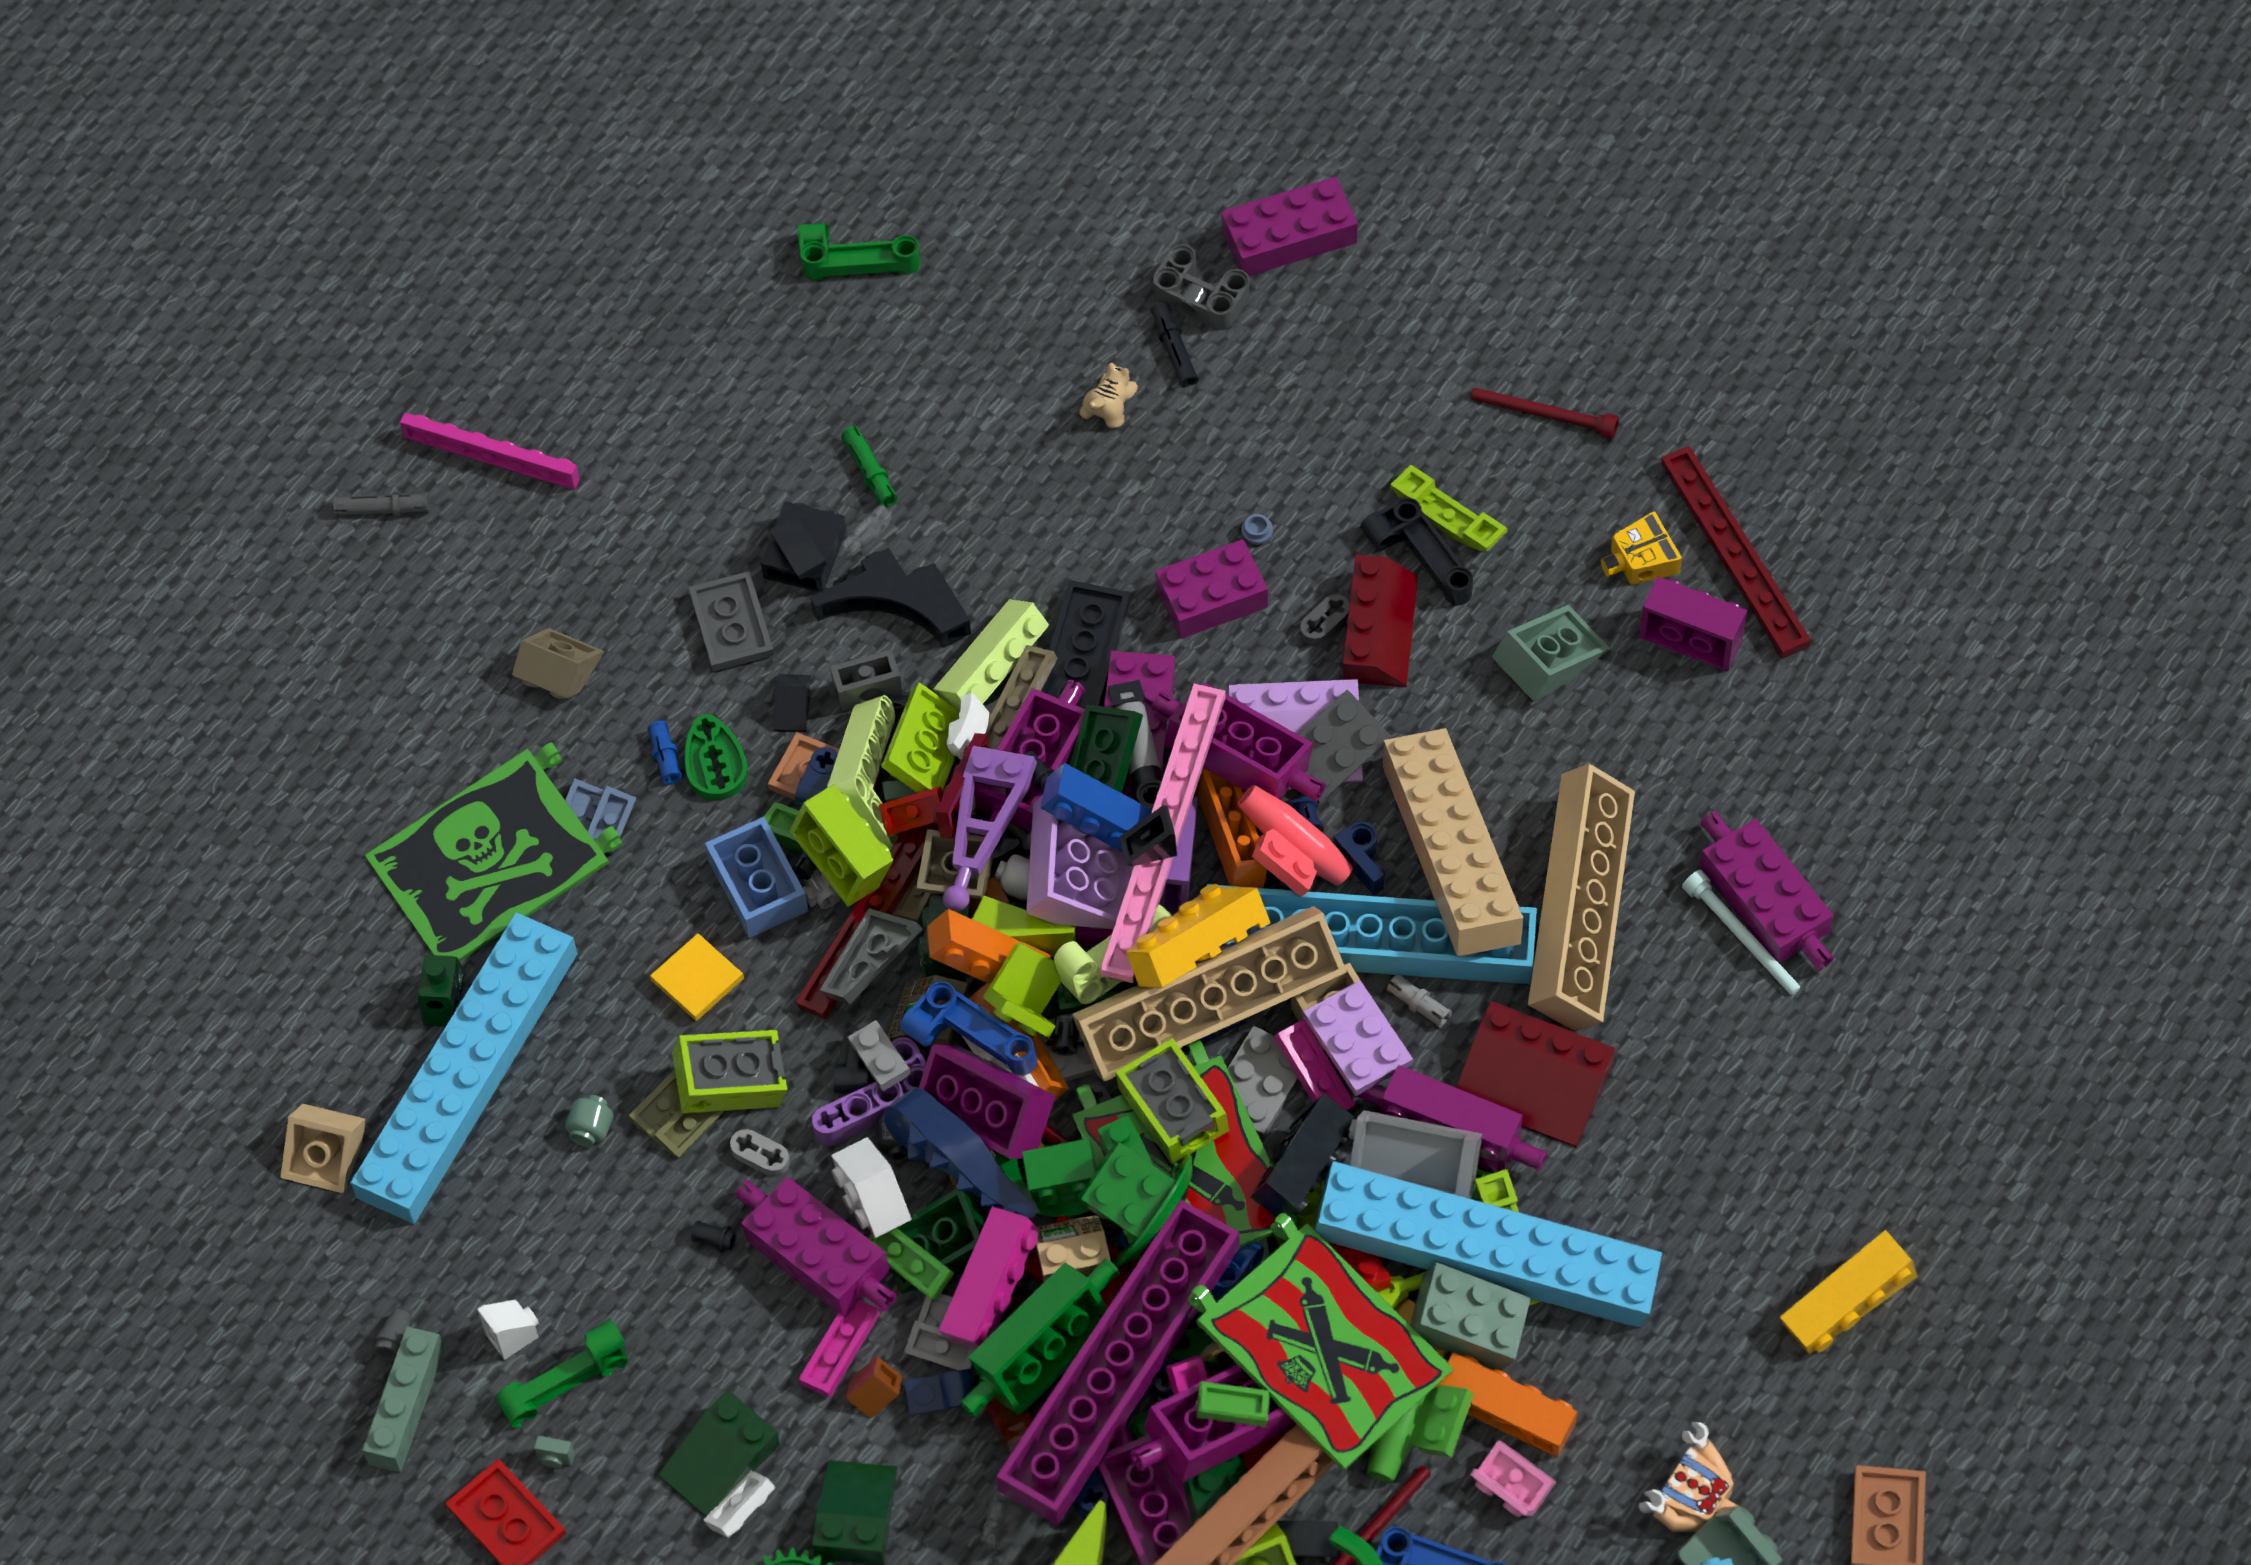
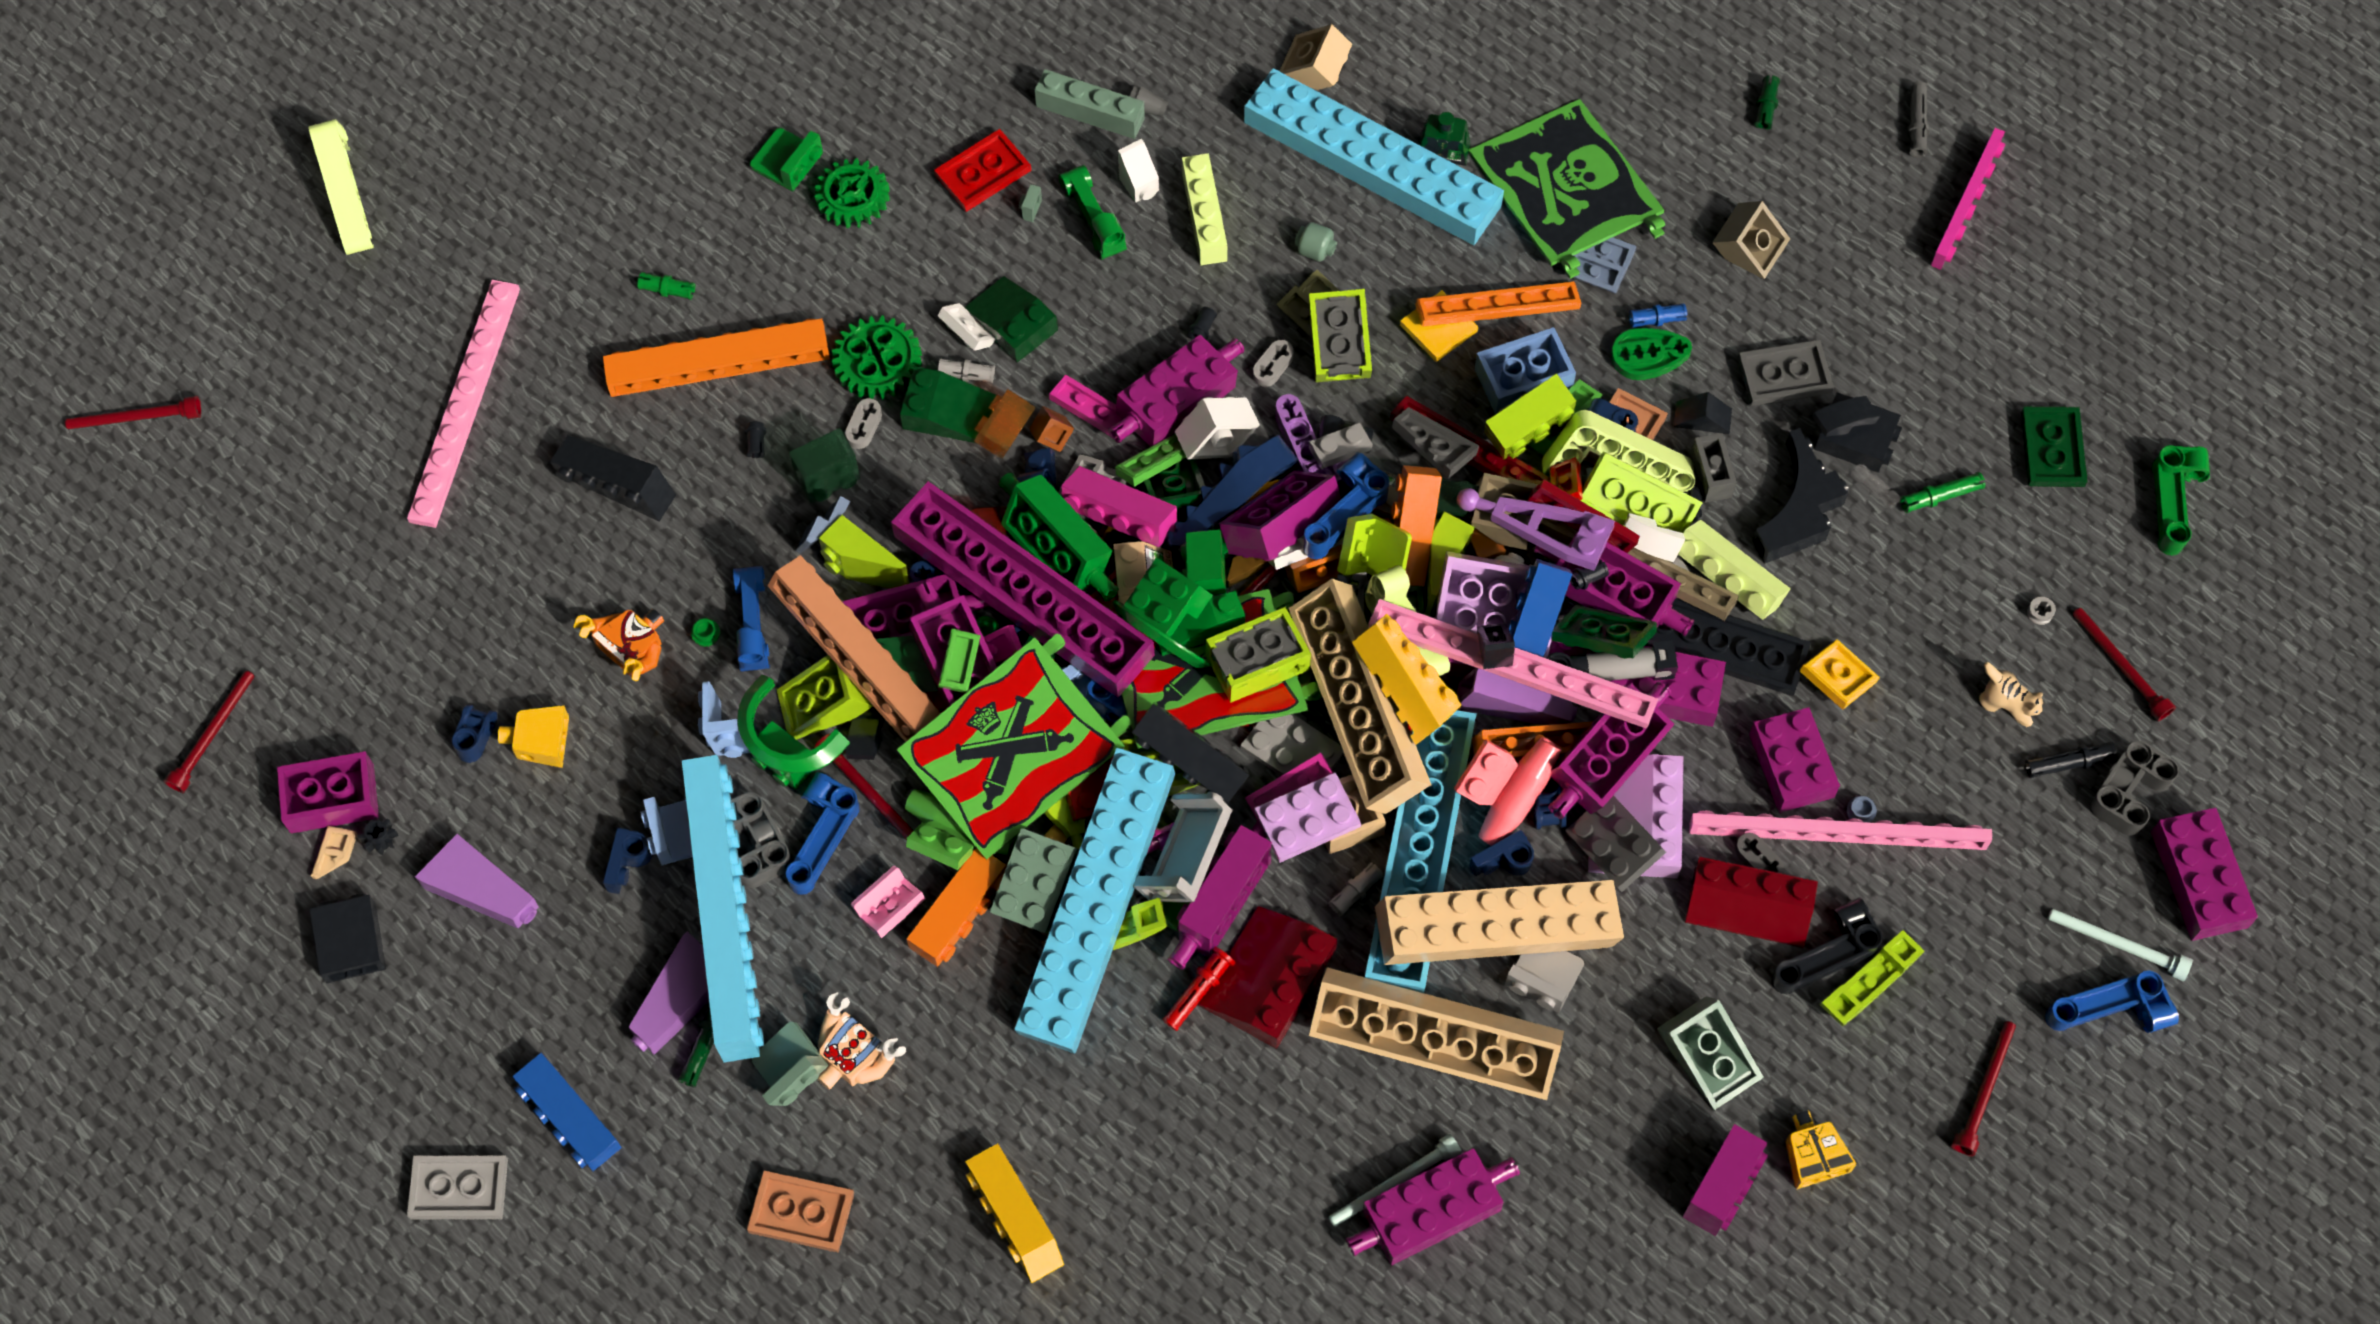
camera: 95 degrees right, 5 degrees up
(365, 656) = (1767, 102): none -> dark green pin
(552, 1247) = (1204, 209): none -> yellowish green brick
(665, 915) = (1498, 303): none -> orange tile
(800, 1497) = (967, 370): none -> light grey pin
(802, 365) = (2054, 447): none -> dark green plate
(875, 1437) = (1004, 423): none -> clear orange brick
(994, 373) = (2038, 619): none -> light grey bush
(1103, 553) = (1839, 674): none -> yellow tile
(1104, 267) = (2159, 705): none -> dark red piece
(1284, 534) = (1847, 831): none -> bright pink plate
(1389, 250) = (2177, 965): none -> light aqua piece
(1435, 272) = (2153, 1008): none -> blue piece
(1501, 805) = (1545, 977): none -> light grey bracket
(1549, 1135) = (1208, 975): none -> red pin
(1735, 552) = (1814, 1242): dark red plate -> none

